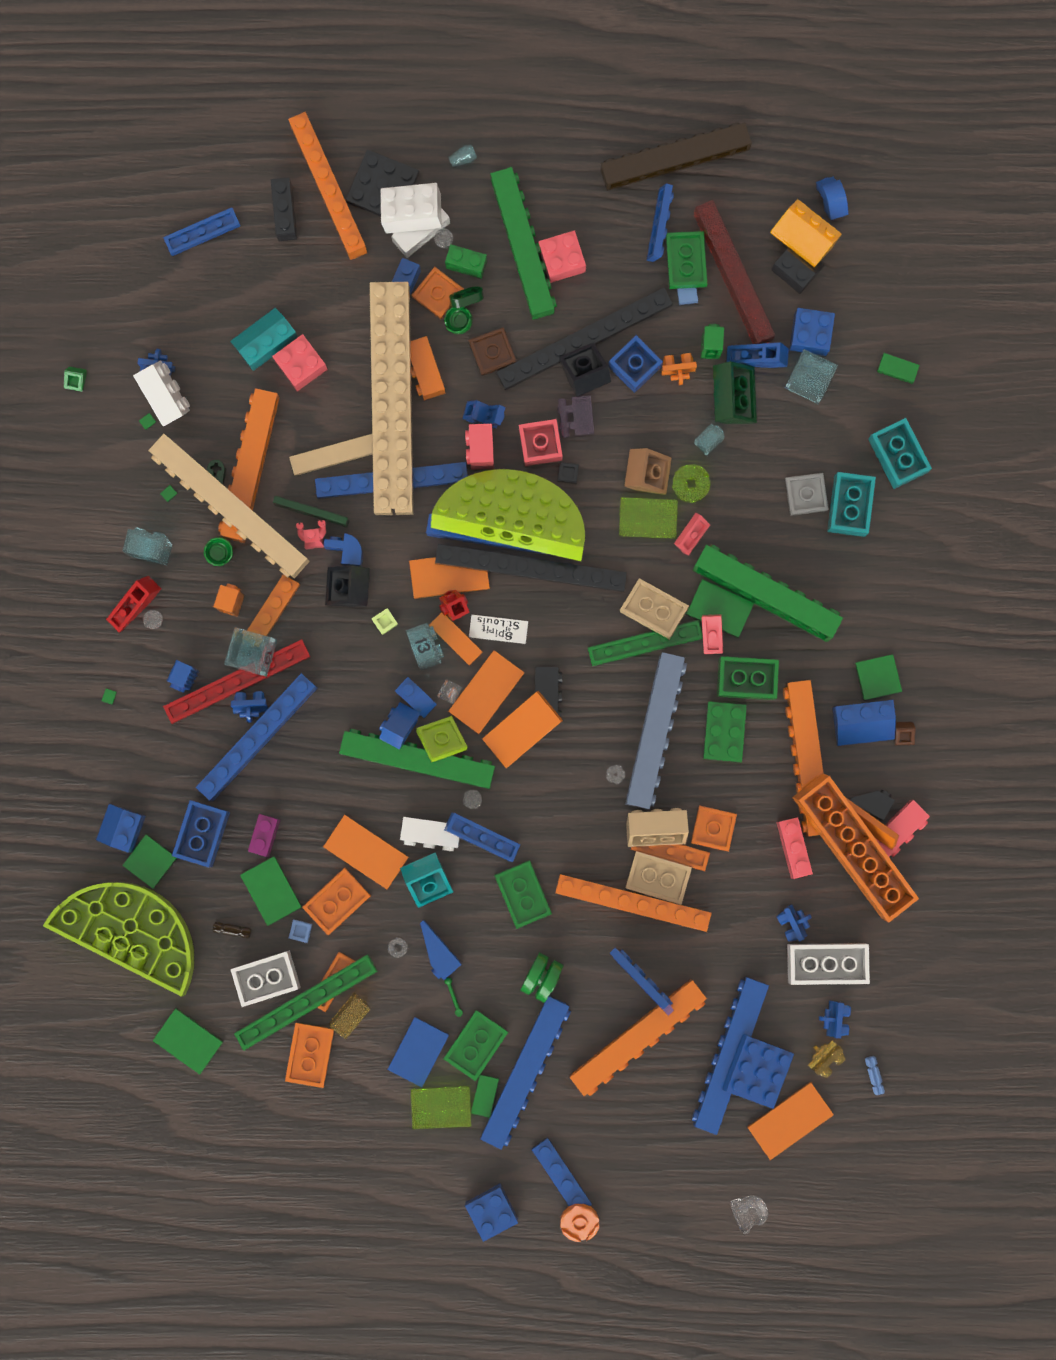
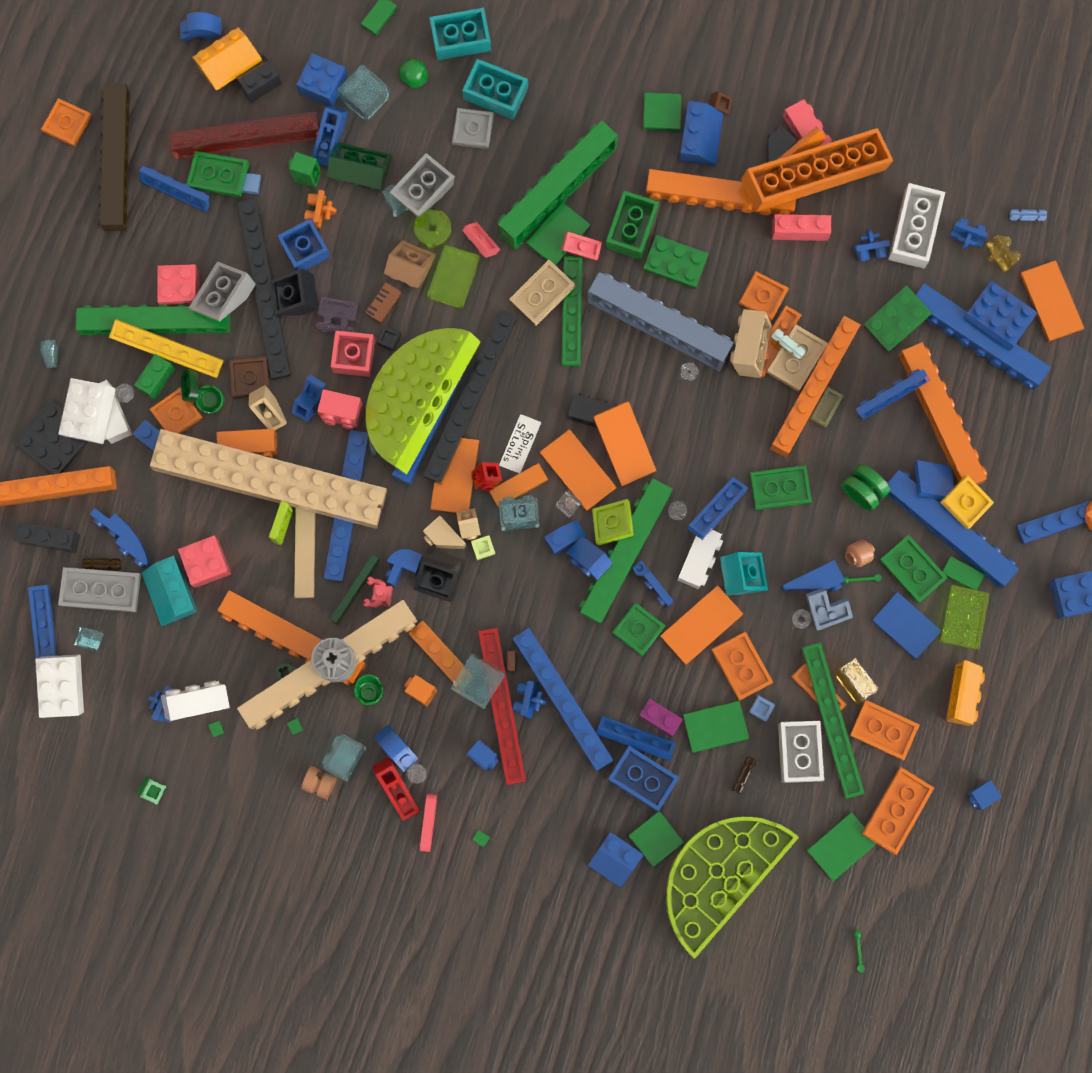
camera: 75 degrees left, 5 degrees down
(78, 1087) = (860, 968): none -> green hinge
(109, 643) = (428, 822): none -> coral beam
(118, 529) = (319, 783): none -> nougat wheel
(146, 265) = (59, 686): none -> white brick
(170, 591) = (395, 748): none -> blue brick
(200, 278) = (89, 638): none -> clear light blue slope
(235, 1086) = (897, 811): none -> orange tile
(239, 510) = (343, 666): none -> light grey wheel
(239, 817) = (636, 738): none -> blue plate
(248, 273) = (99, 589): none -> light grey plate
(270, 1166) = (983, 795): none -> blue brick
(274, 268) = (101, 563): none -> dark brown axle
(281, 678) = (511, 661): none -> reddish brown tile
(301, 286) = (128, 539): none -> blue slope
(346, 792) = (638, 629): none -> green tile
(353, 423) = (281, 523): none -> lime tile
(364, 1126) = (965, 693): none -> light orange slope
(386, 579) = (442, 535): none -> tan slope
(393, 794) = (652, 583): none -> blue hinge
(402, 600) = (468, 524): none -> tan slope
(407, 970) = (824, 613): none -> sand blue plate
(464, 376) = (267, 408): none -> tan slope
(476, 988) = (859, 553): none -> nougat head
(496, 263) = (166, 348): none -> yellow tile
(553, 1082) = (967, 502): none -> yellow tile
(564, 299) = (222, 292): none -> light grey slope
(568, 1044) = (933, 479): none -> blue tile
(602, 457) = (383, 303): none -> dark orange tile
(616, 919) = (826, 407): none -> olive tile
(668, 864) = (788, 344): none -> light aqua axle
(699, 99) = (66, 122): none -> orange tile
(725, 968) = (898, 318): none -> green plate
(727, 461) = (423, 185): none -> light grey slope
(847, 419) = (413, 73): none -> green hair

